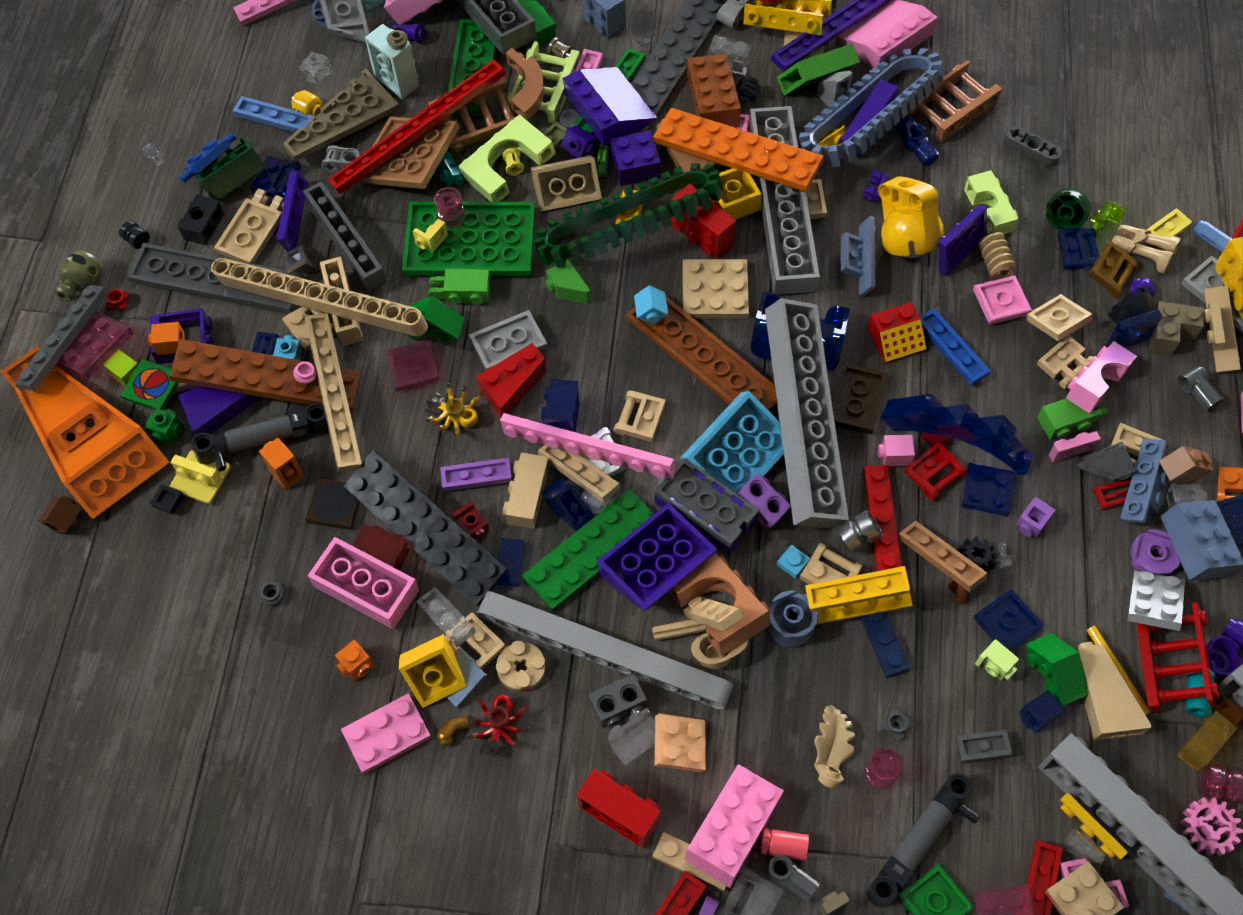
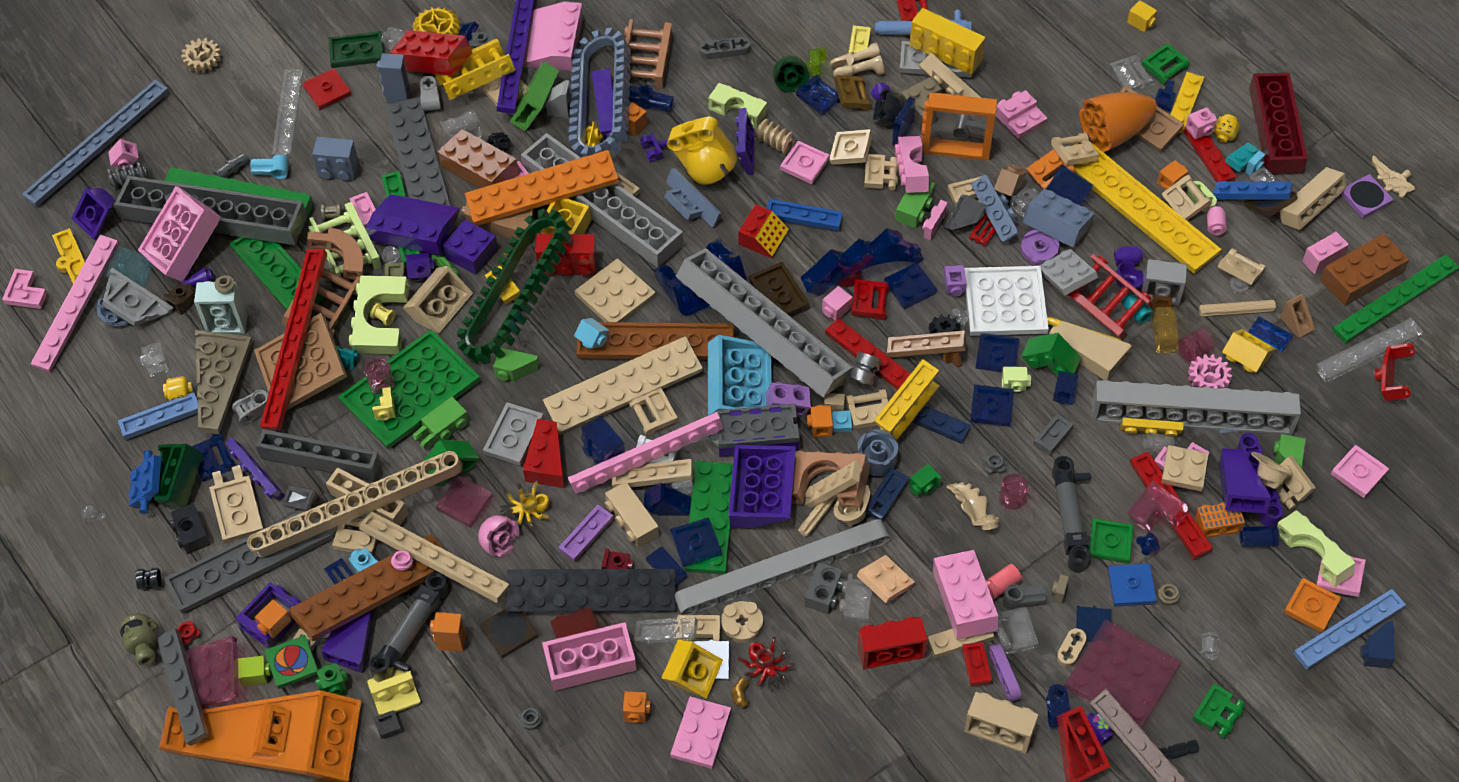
camera: 45 degrees left, 5 degrees down
(403, 416) = (498, 535): none -> bright pink cylinder
(551, 560) = (695, 542): none -> clear blue tile
(637, 371) = (622, 384): none -> tan plate
(763, 665) = (886, 494): none -> dark blue plate
(772, 545) = (820, 421): none -> orange brick
(805, 539) = (836, 401): none -> tan slope
(809, 683) = (924, 481): none -> green brick
(884, 150) = (637, 119): none -> orange brick
(950, 666) = (991, 405): none -> clear blue plate
(1067, 577) = (1006, 300): none -> white plate
(1198, 356) = (959, 105): none -> orange window

